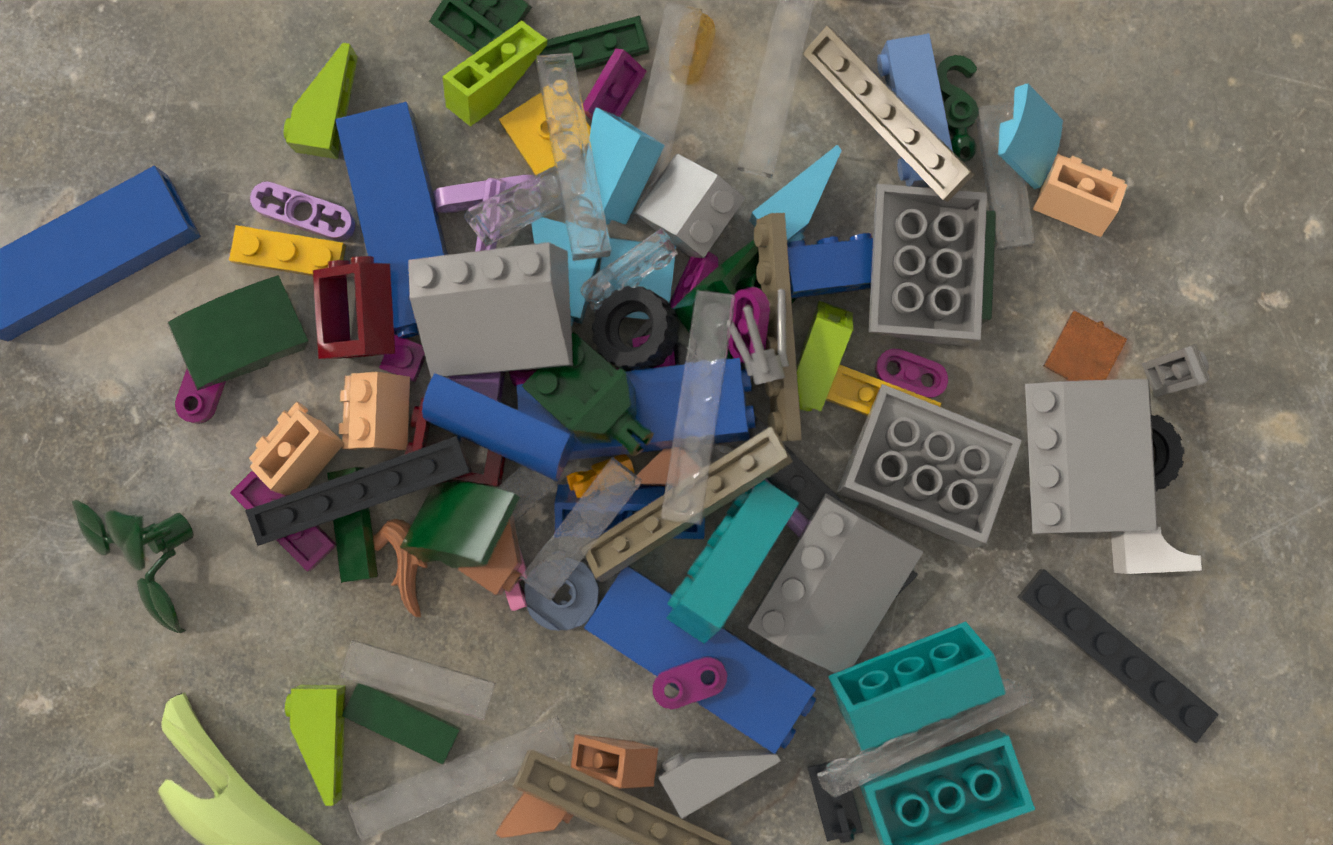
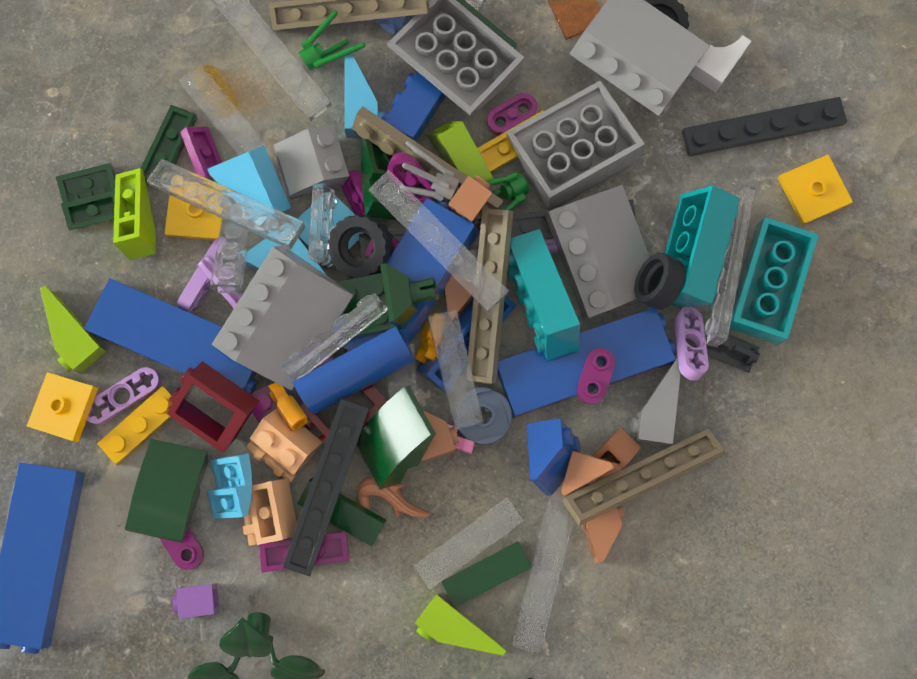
camera: 55 degrees left, 5 degrees down
(154, 450) = (196, 601): none -> medium lavender brick
(244, 162) = (62, 407): none -> yellow plate
(286, 399) = (233, 486): none -> medium azure slope
(411, 388) = (287, 407): none -> light orange bar
(498, 376) = (342, 331): none -> clear plate
(569, 698) = (550, 452): none -> blue slope
(580, 748) = (586, 470): none -> nougat slope
(770, 406) = (471, 198): none -> nougat slope
(791, 757) = (685, 352): none -> lavender beam
(808, 120) = (315, 56): none -> green plant
(829, 435) = (513, 188): none -> green plant
(848, 690) = (669, 286): none -> black tyre
(1089, 764) = (815, 190): none -> yellow plate

